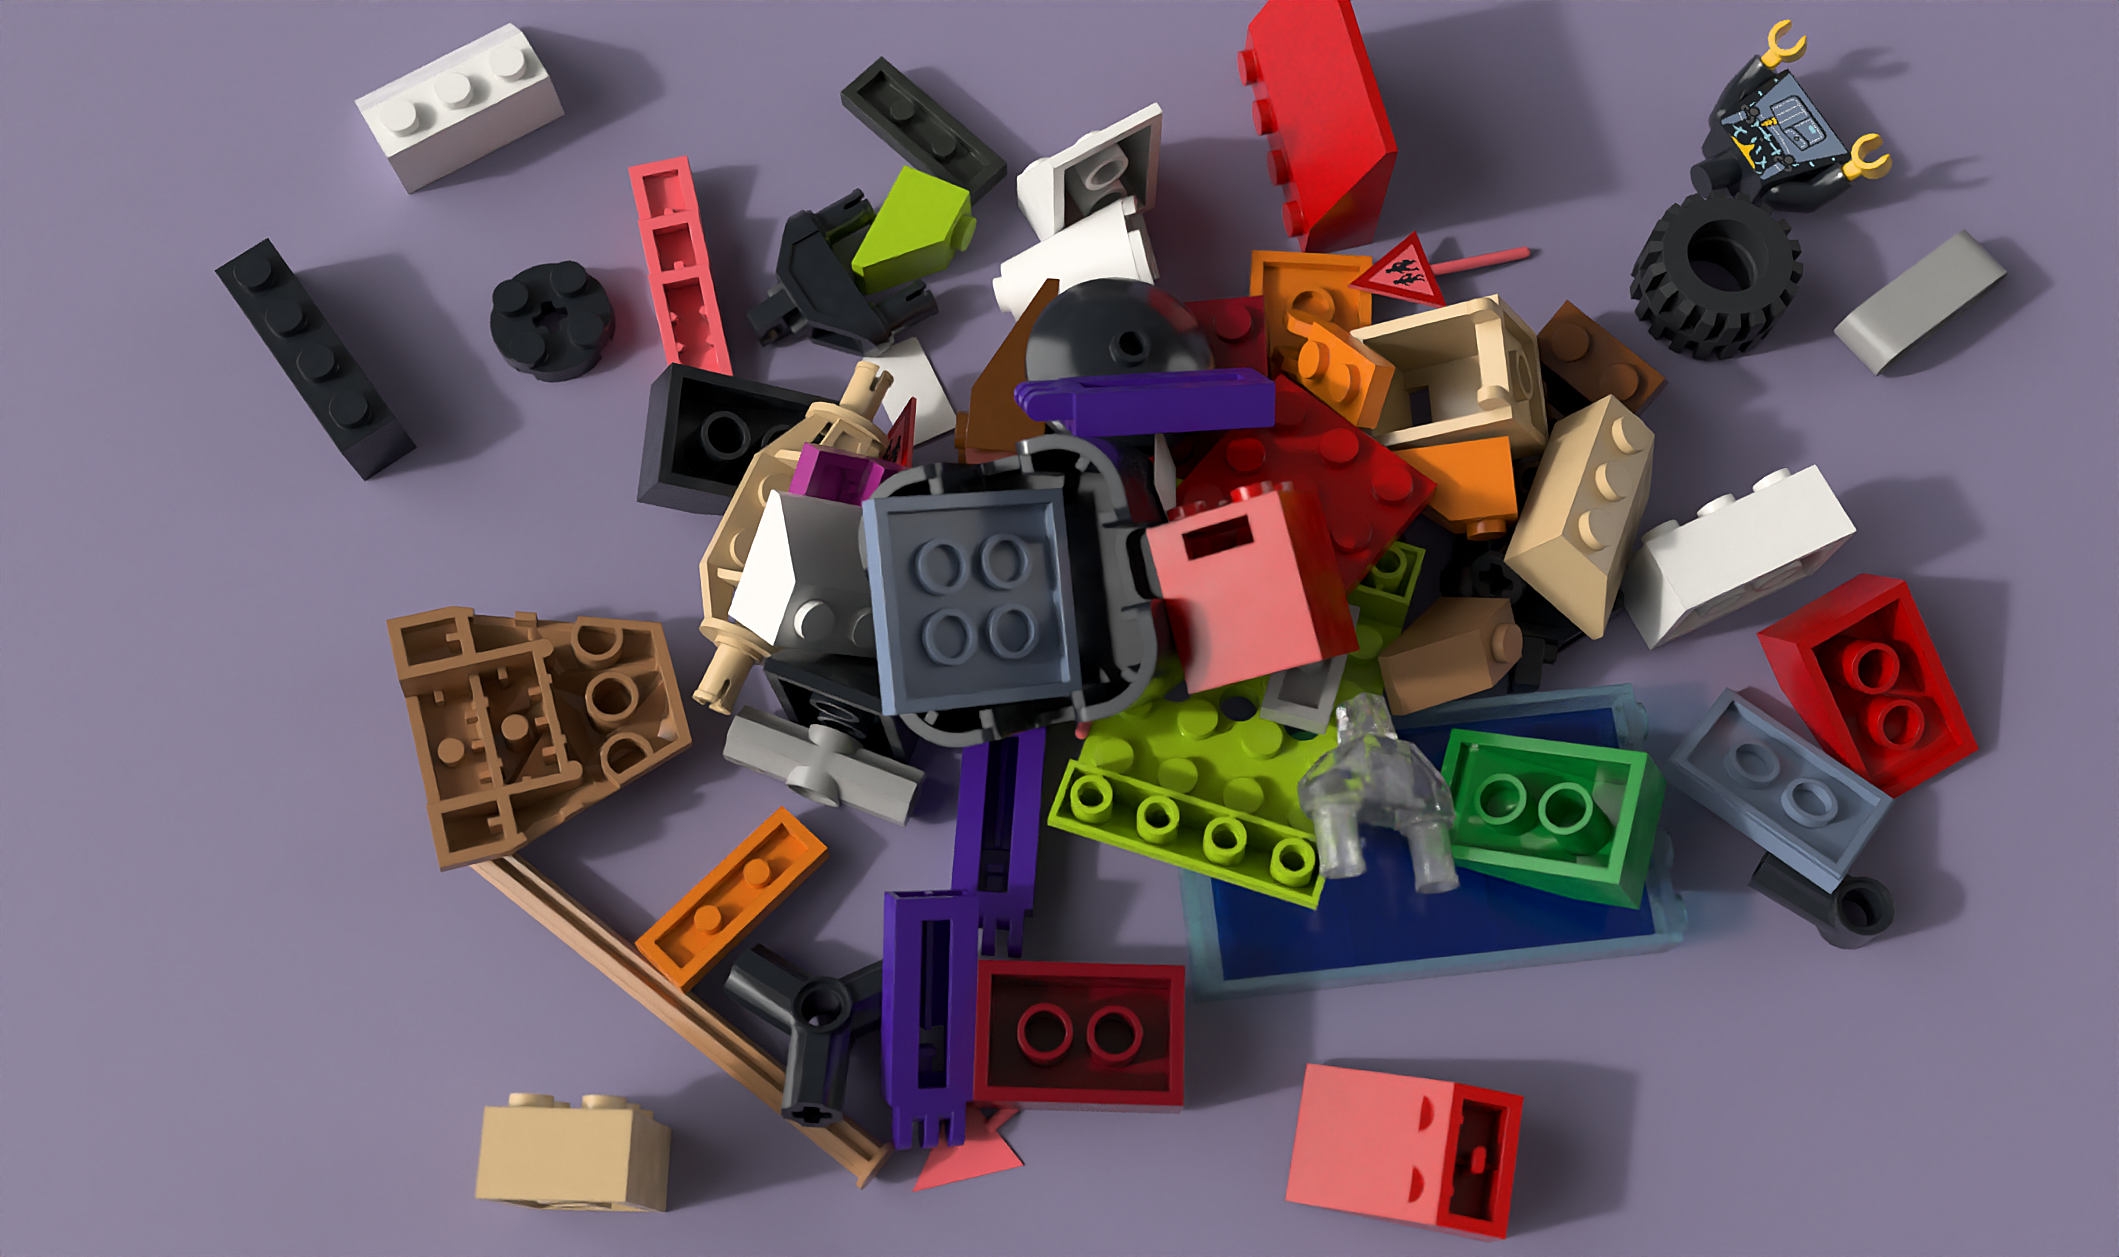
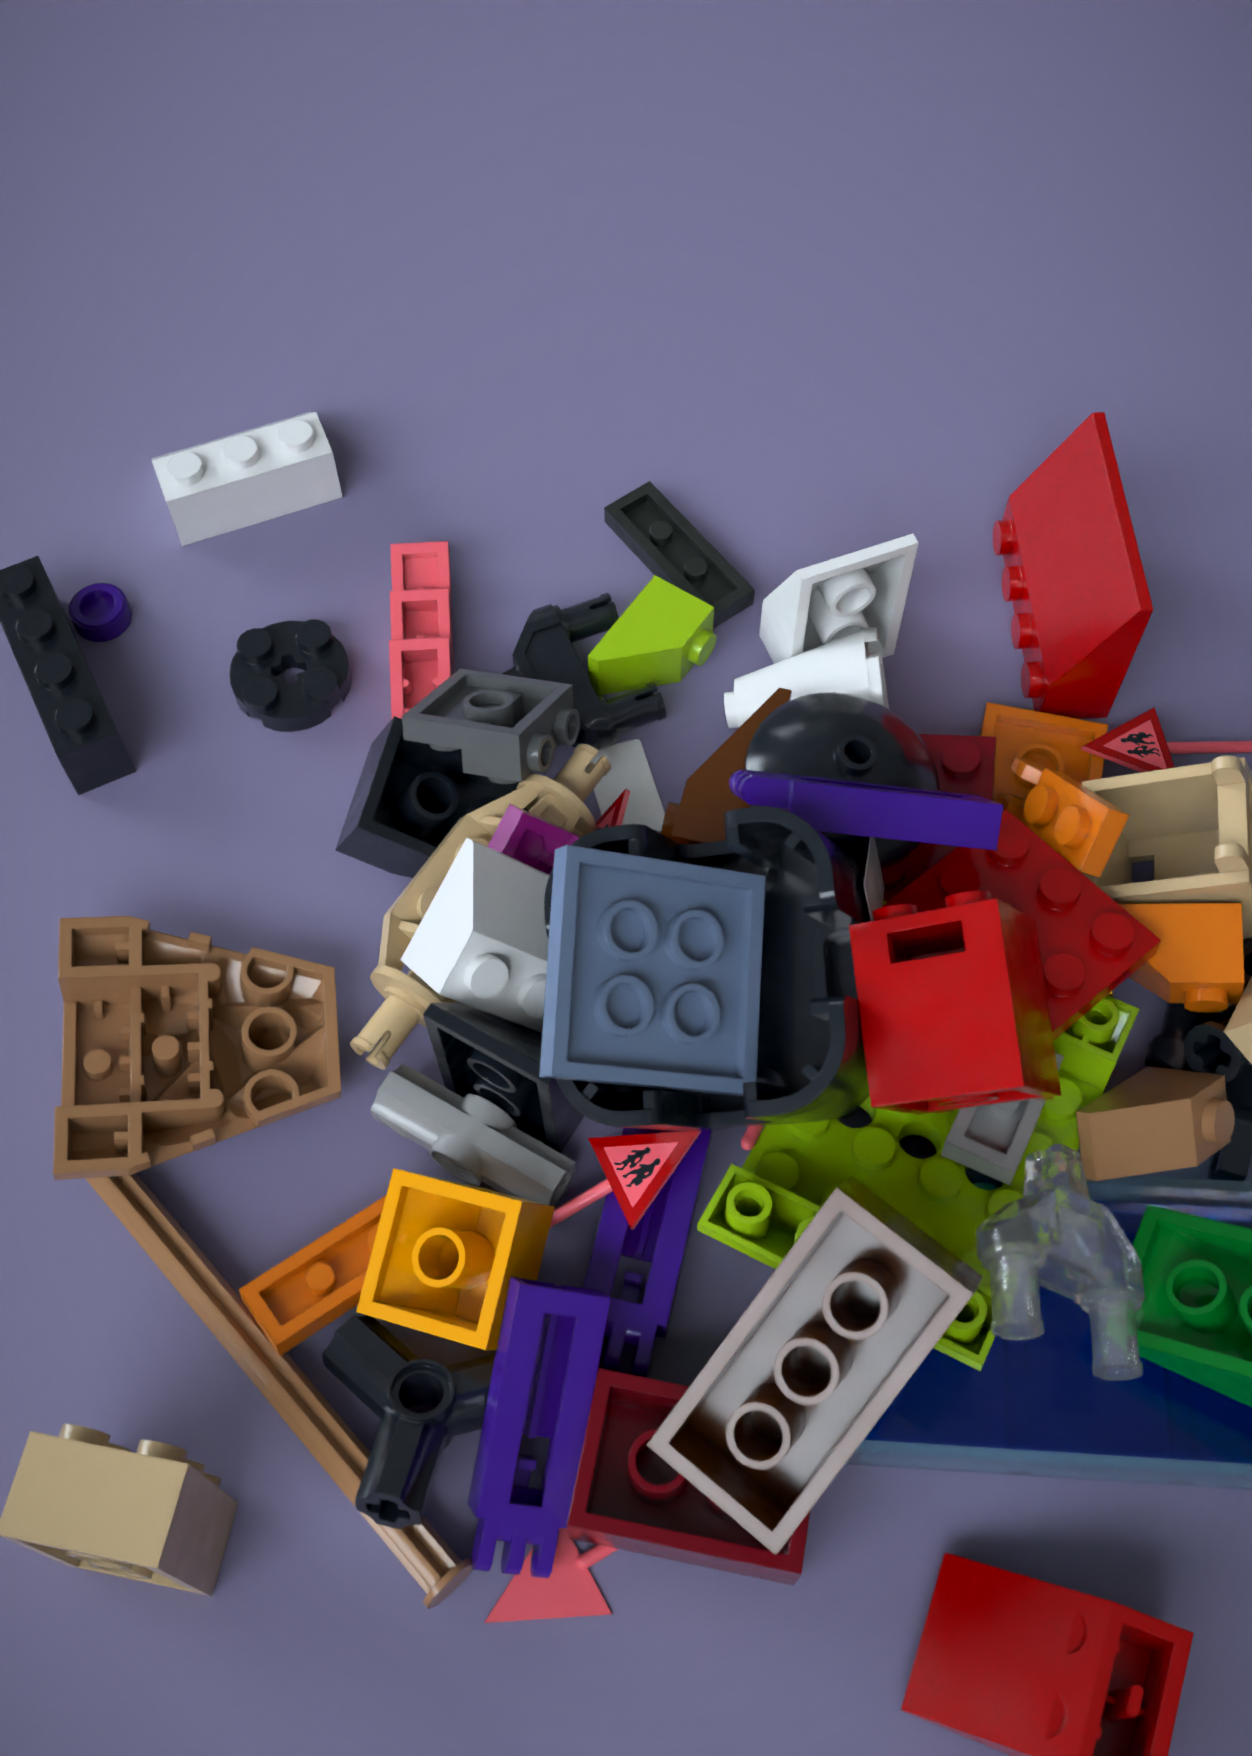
camera: 10 degrees right, 10 degrees down
(341, 282) = (100, 612): none -> dark purple tile
(773, 350) = (498, 722): none -> dark grey plate
(825, 880) = (449, 1257): none -> light orange slope
(980, 774) = (634, 1170): none -> piece
(1170, 927) = (814, 1362): none -> brick

